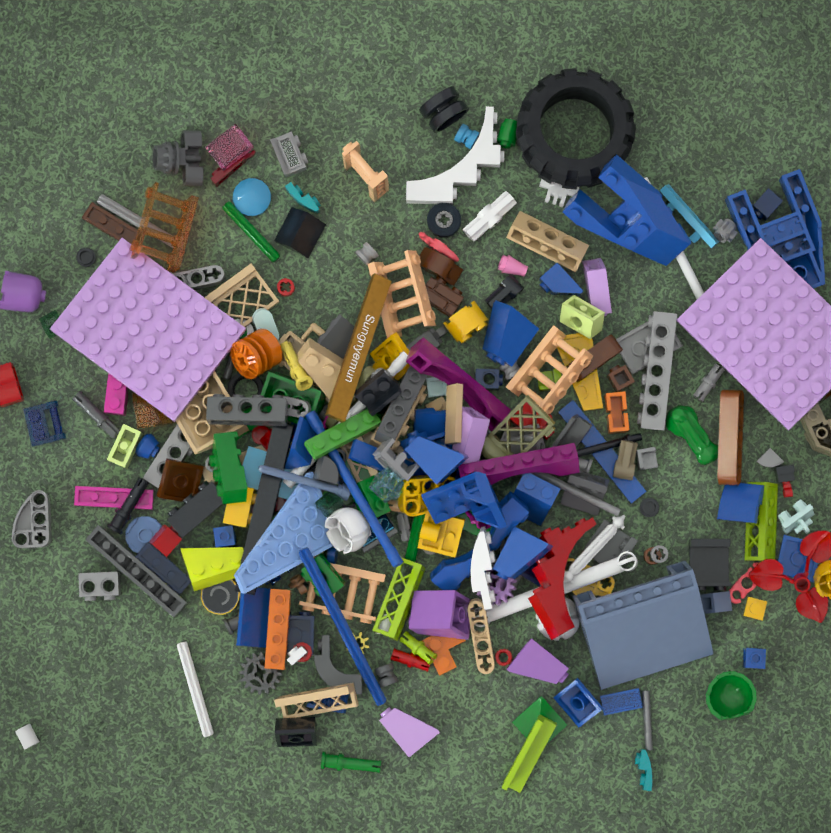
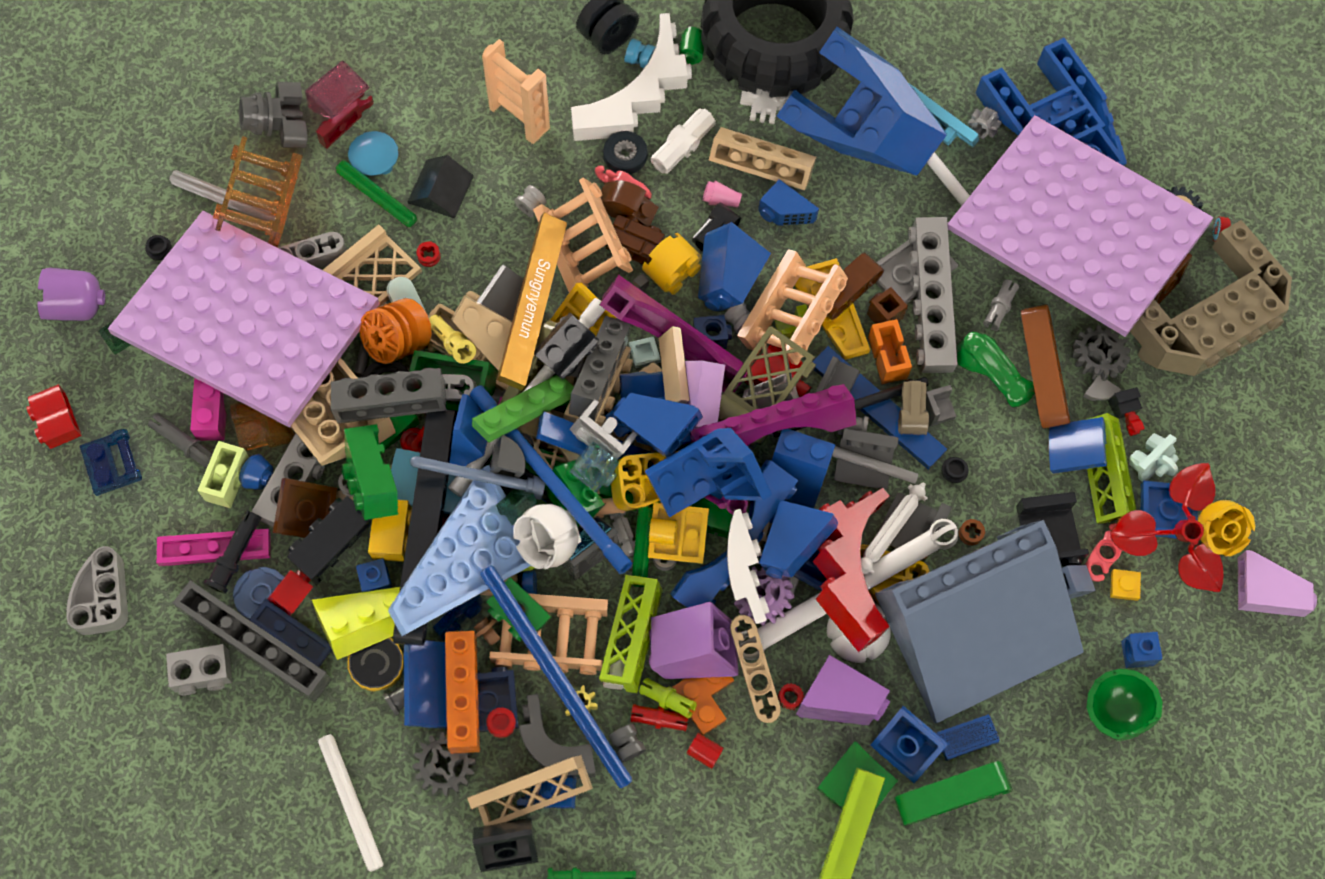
camera: 15 degrees left, 15 degrees down
(109, 223) = (181, 202): reddish brown tile -> none
(288, 154) = (416, 97): light grey window -> none
(296, 654) = (493, 723): white plate -> none
(307, 202) = (439, 147): teal slope -> none
(407, 730) = (668, 818): lavender slope -> none
(438, 687) = (705, 750): none -> red piece
(582, 317) = (835, 235): yellowish green brick -> none
(597, 284) = (836, 205): lavender slope -> none
(603, 739) = (953, 793): none -> green beam
(643, 763) = (1019, 821): teal slope -> none
(647, 720) = (1009, 759): flat silver bar -> none
(653, 556) = (989, 522): light grey bush -> none
(766, 204) = (1032, 85): dark blue brick -> none
(773, 441) = (1100, 353): none -> dark grey gear

